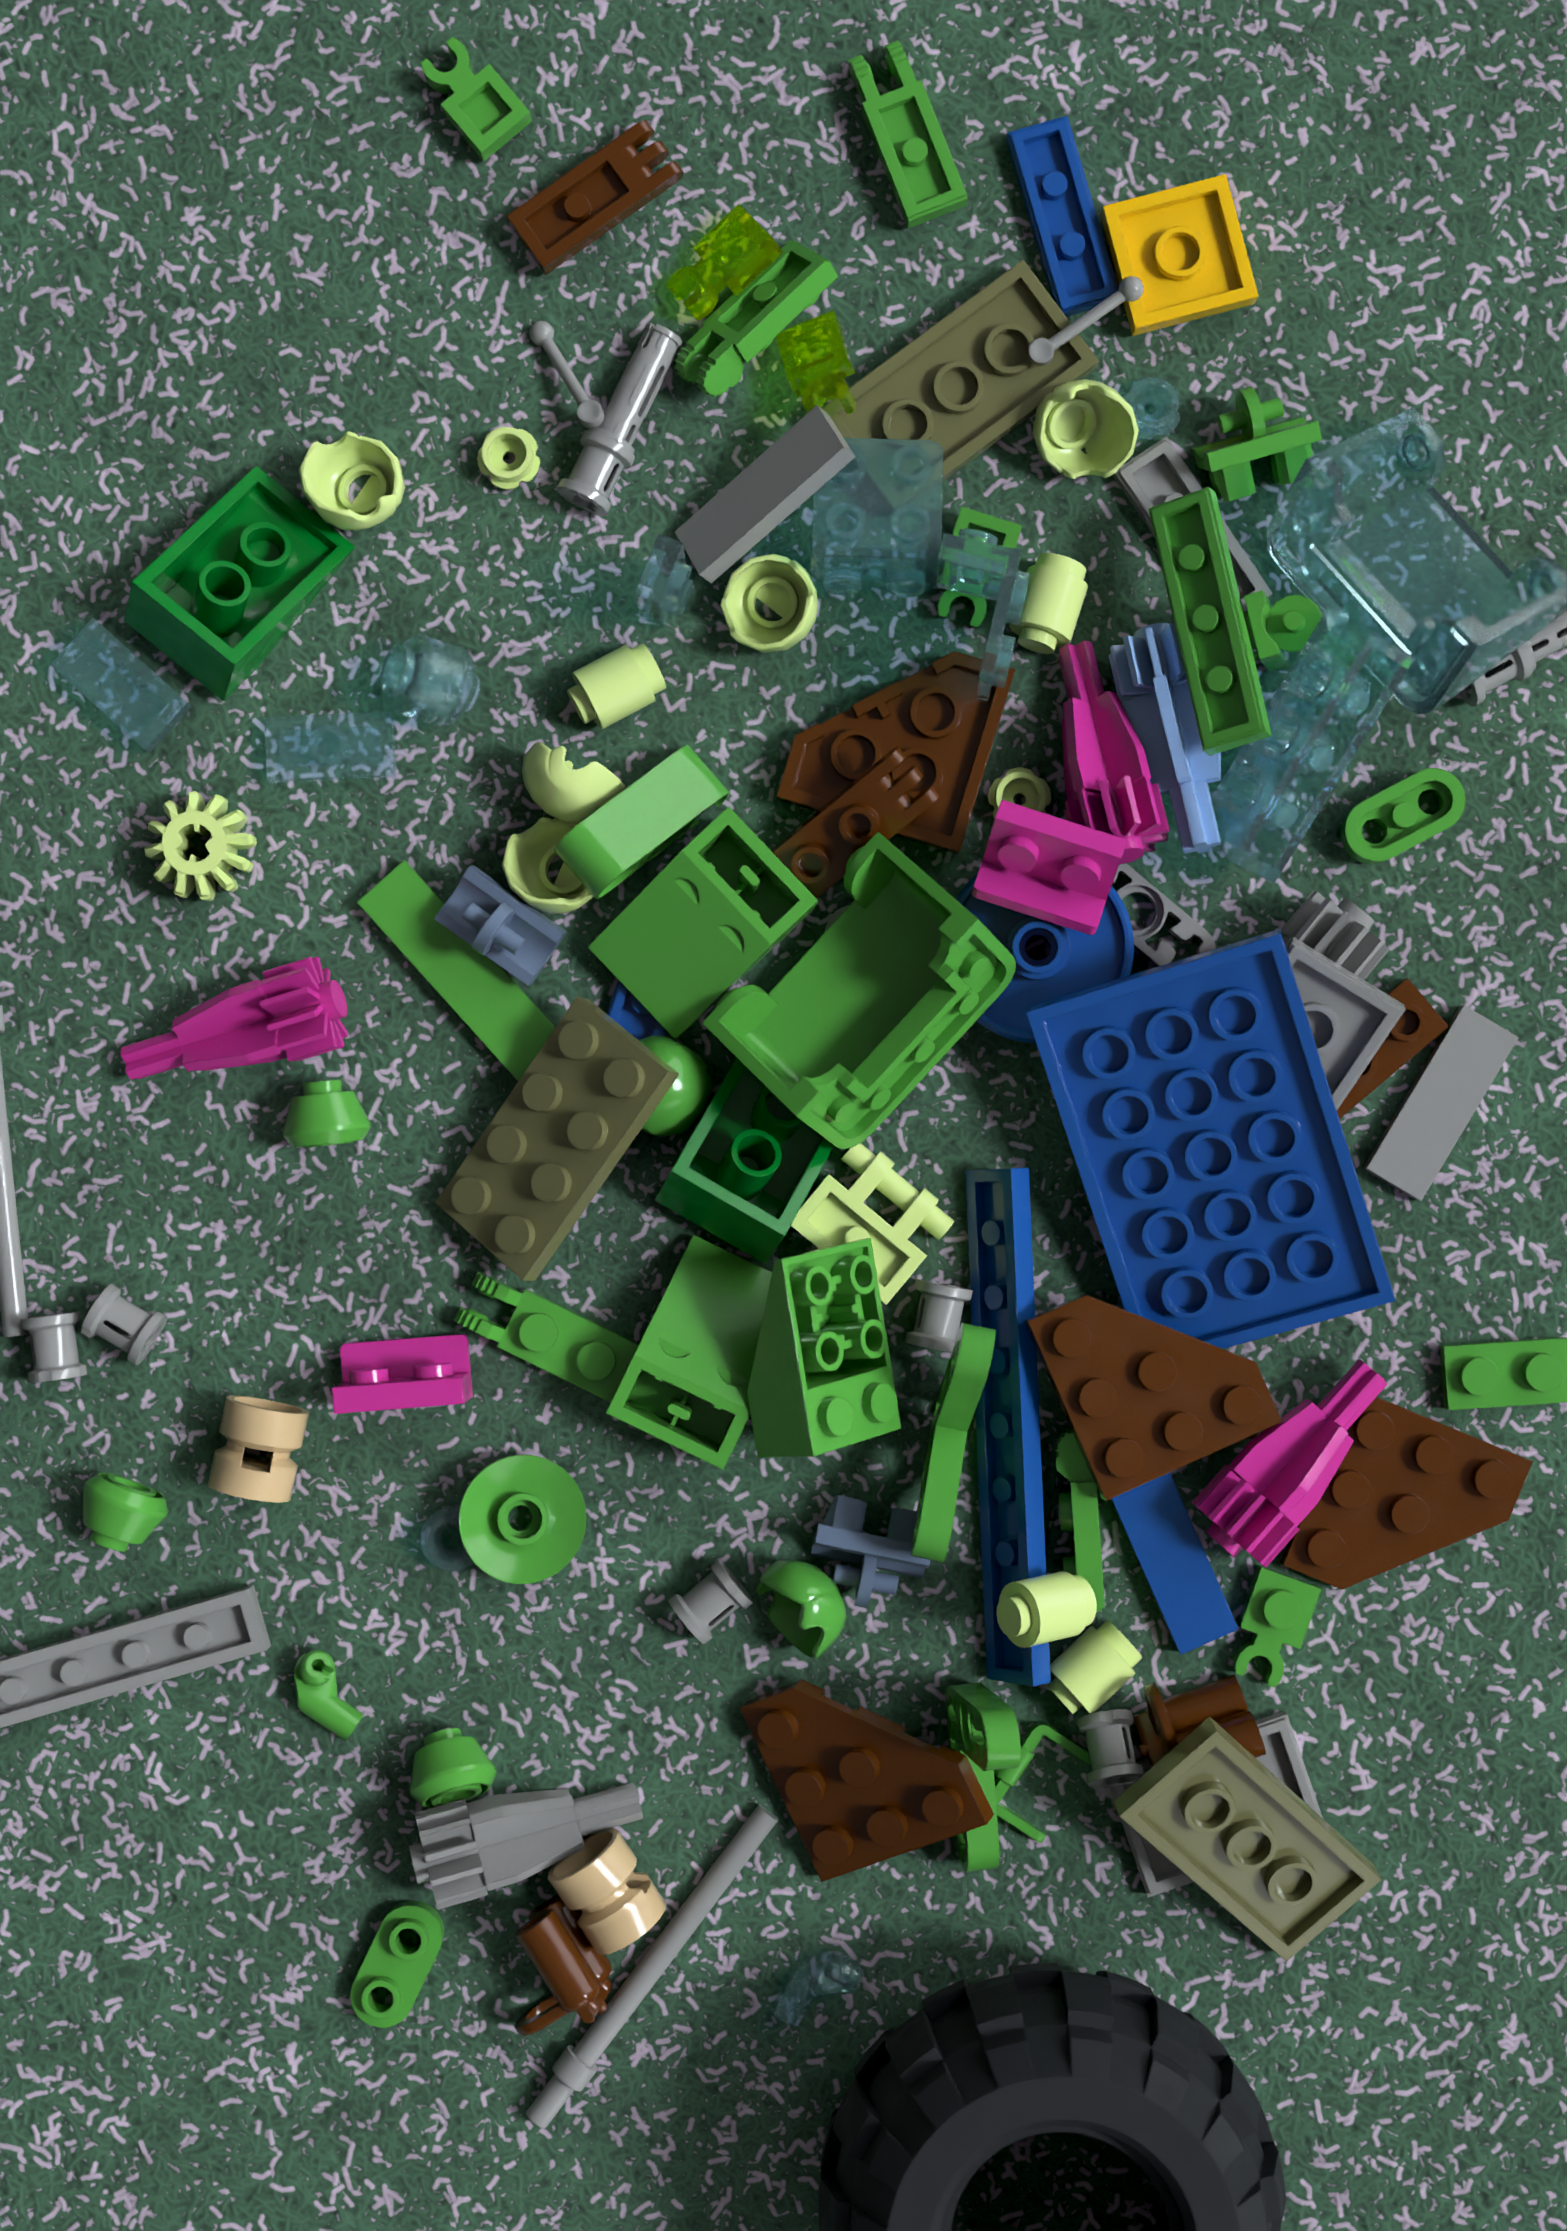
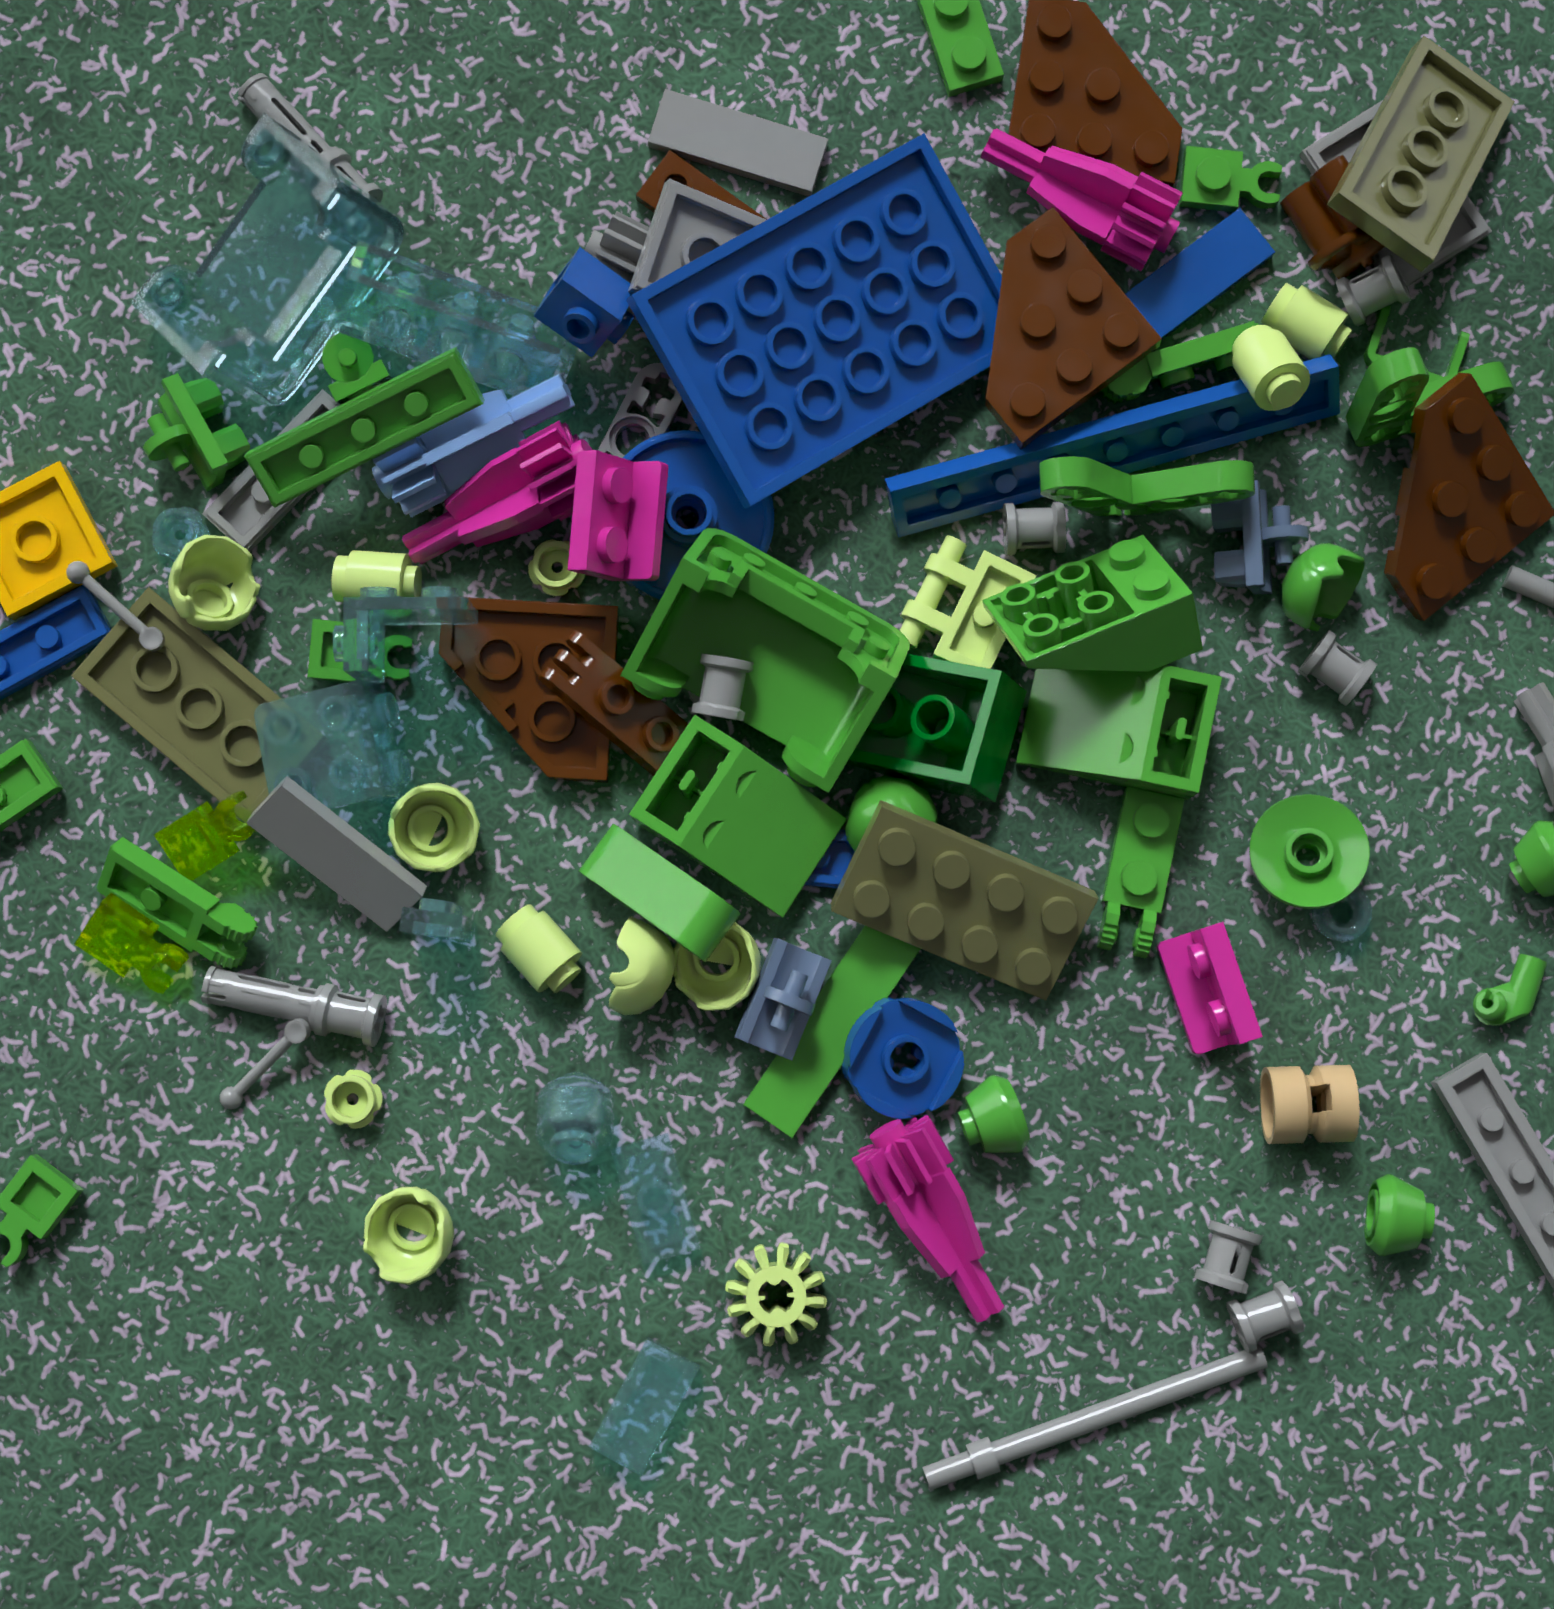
camera: 105 degrees left, 5 degrees down
(235, 582) = (525, 1320): green slope -> none
(375, 1040) = (935, 1046): none -> blue plate
(593, 197) = (97, 1079): reddish brown hinge -> none
(841, 938) = (722, 687): none -> light grey bush
(1290, 890) = (587, 304): none -> blue brick
(1400, 816) = (496, 232): bright green plate -> none

